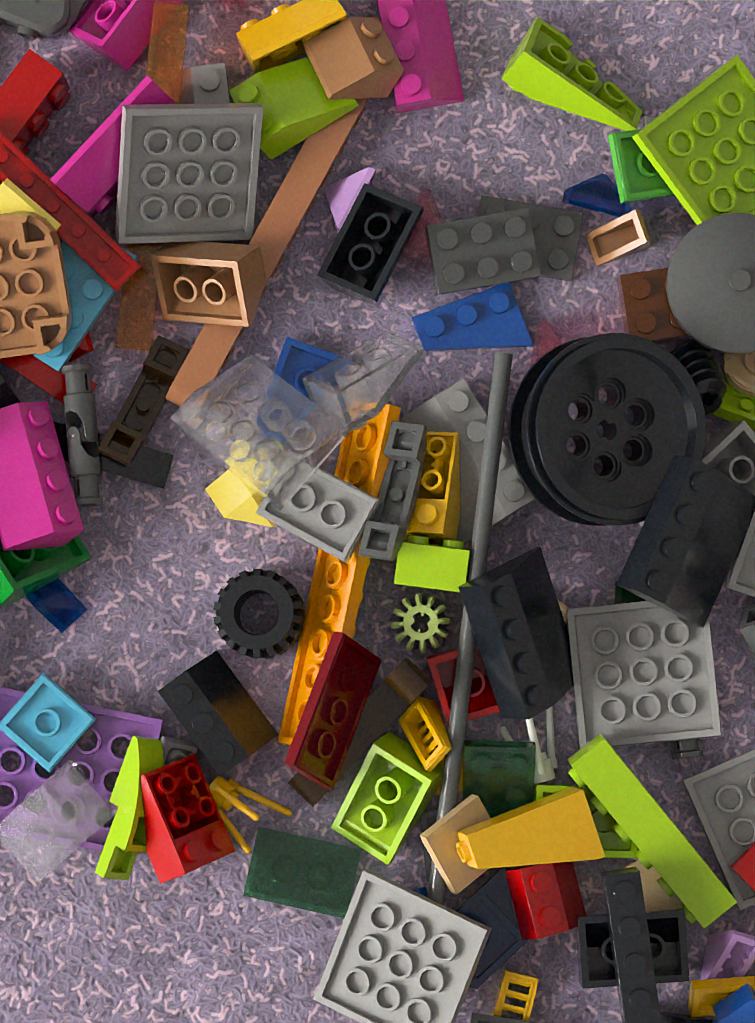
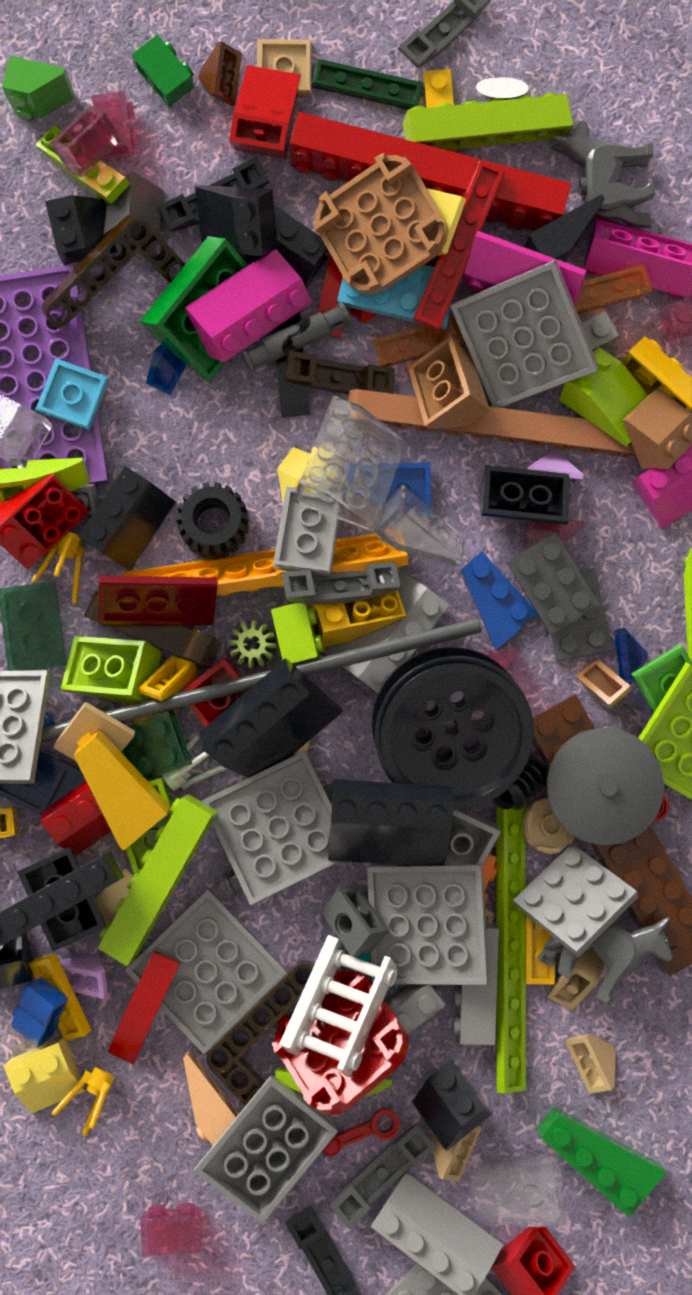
camera: 60 degrees right, 0 degrees up
(86, 87) = (562, 235): none -> black slope

